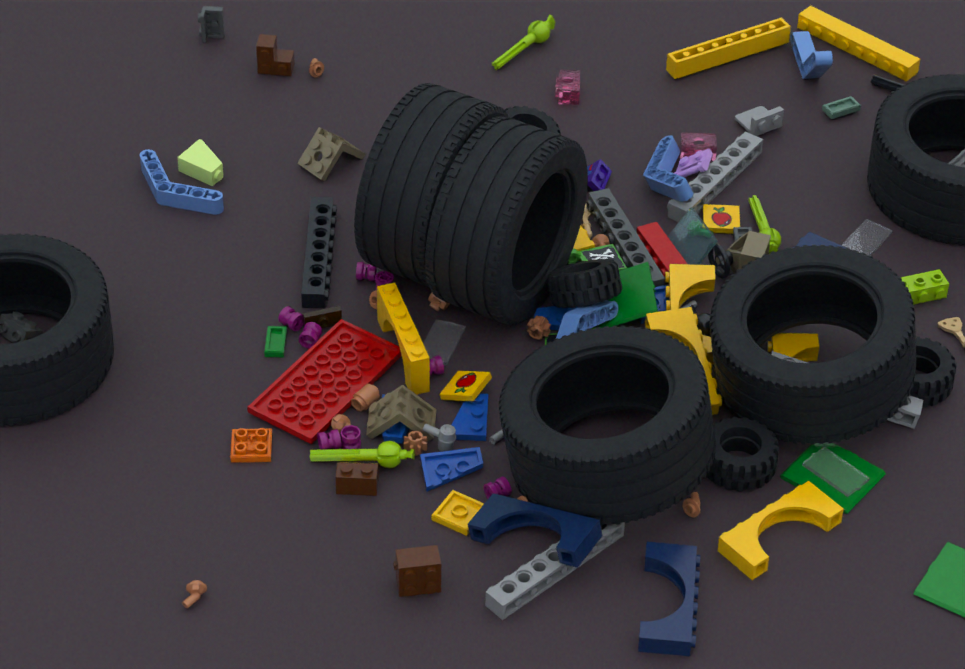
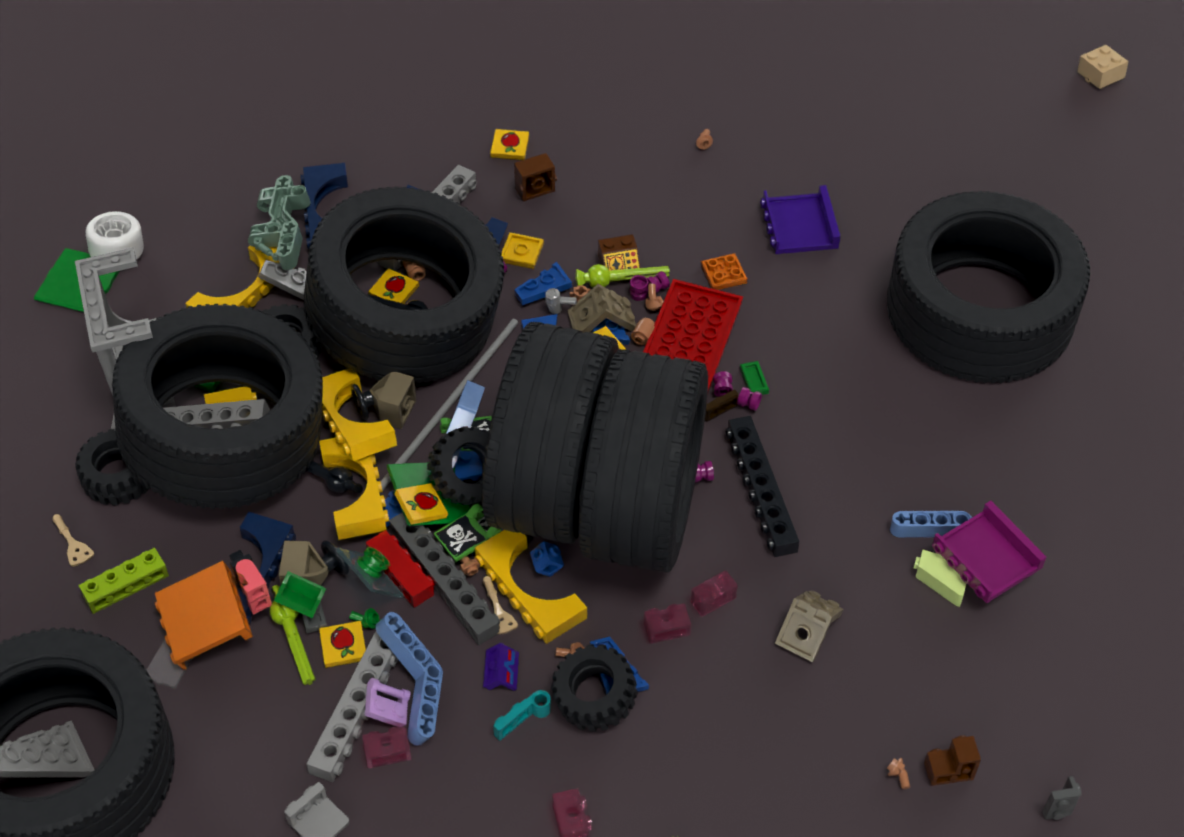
camera: 165 degrees right, 10 degrees up
(139, 478) = (801, 222): none -> dark purple panel
(162, 154) = (989, 553): none -> magenta panel
(428, 642) = (510, 144): none -> yellow tile
(595, 143) = (521, 712): none -> teal plate
(635, 274) = (421, 503): none -> yellow tile
(684, 239) = (373, 562): none -> green wheel
(724, 514) = (288, 280): none -> light grey wing
(727, 555) = (282, 229): none -> sand green beam
(741, 226) = (300, 594): none -> green panel
(793, 231) = (250, 581): none -> coral hips
(837, 228) = (201, 613): none -> orange panel
(909, 423) = (106, 329): none -> light grey arch
(923, 594) = (113, 233): none -> white wheel

